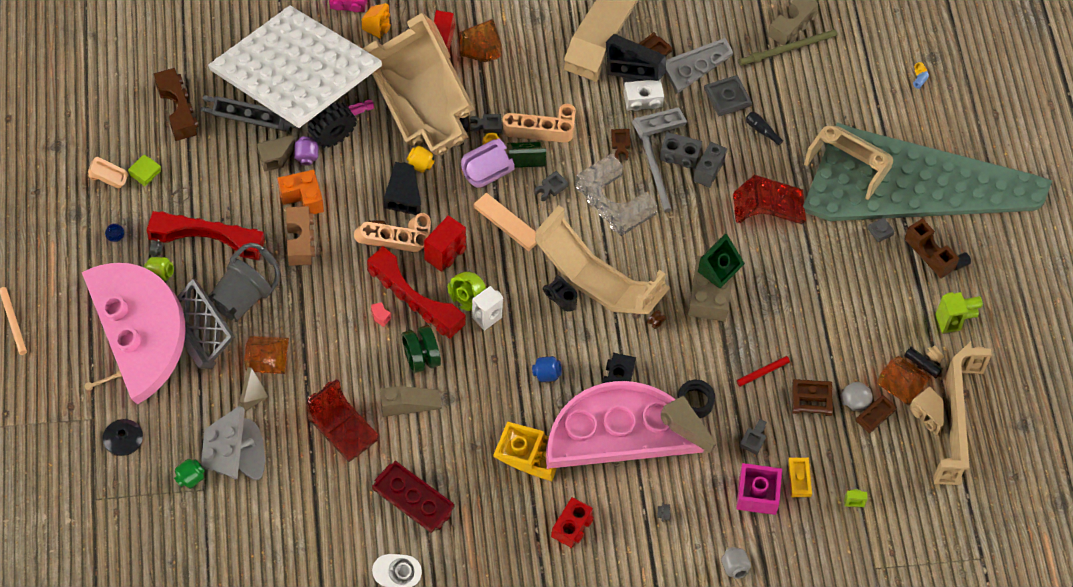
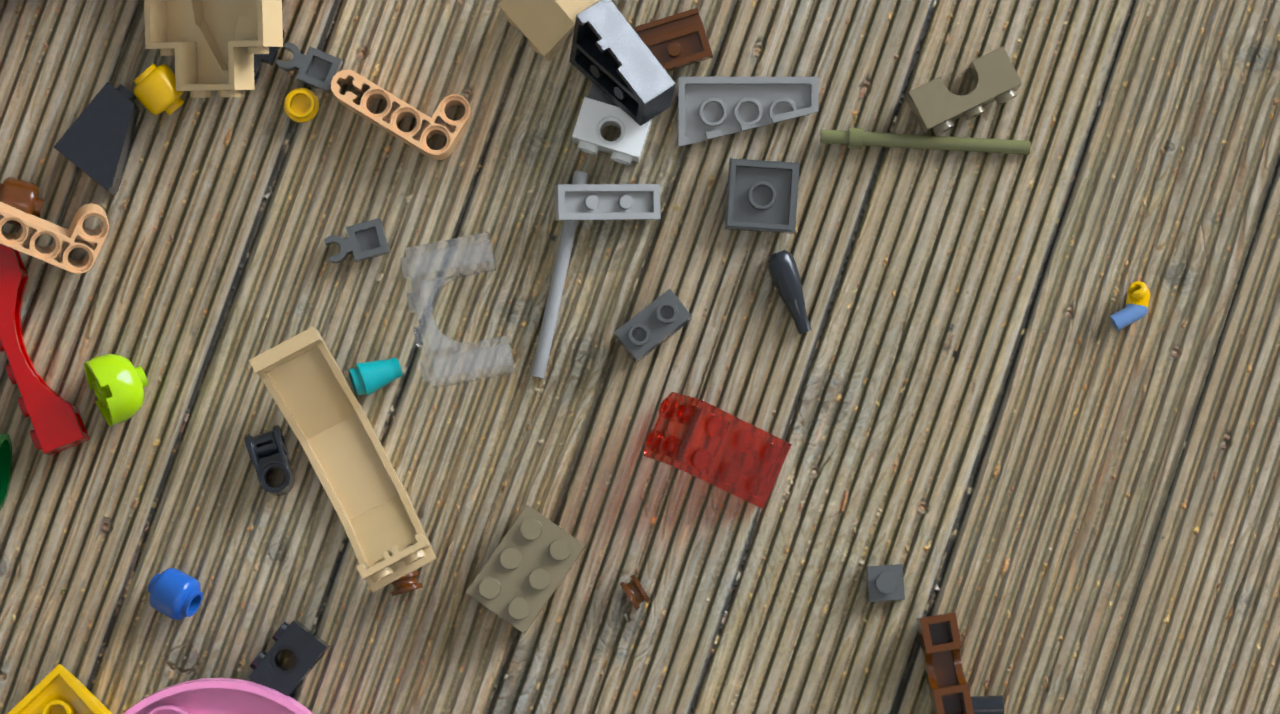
camera: 30 degrees right, 25 degrees up
(445, 243) = (114, 285): red brick -> none
(486, 163) = (261, 155): lavender cylinder -> none
(487, 307) = (126, 441): white brick -> none
(506, 221) = (252, 276): light nougat tile -> none
(527, 154) = (349, 153): dark green slope -> none
(592, 236) = (373, 375): none -> teal cone
(621, 141) = (524, 206): reddish brown plate -> none
(682, 147) = (623, 267): dark grey brick -> none
(720, 262) = (550, 550): dark green slope -> none
(768, 278) = (635, 592): none -> reddish brown bush
(857, 148) = (950, 450): tan windscreen -> none
(918, 184) = (968, 492): sand green wing -> none

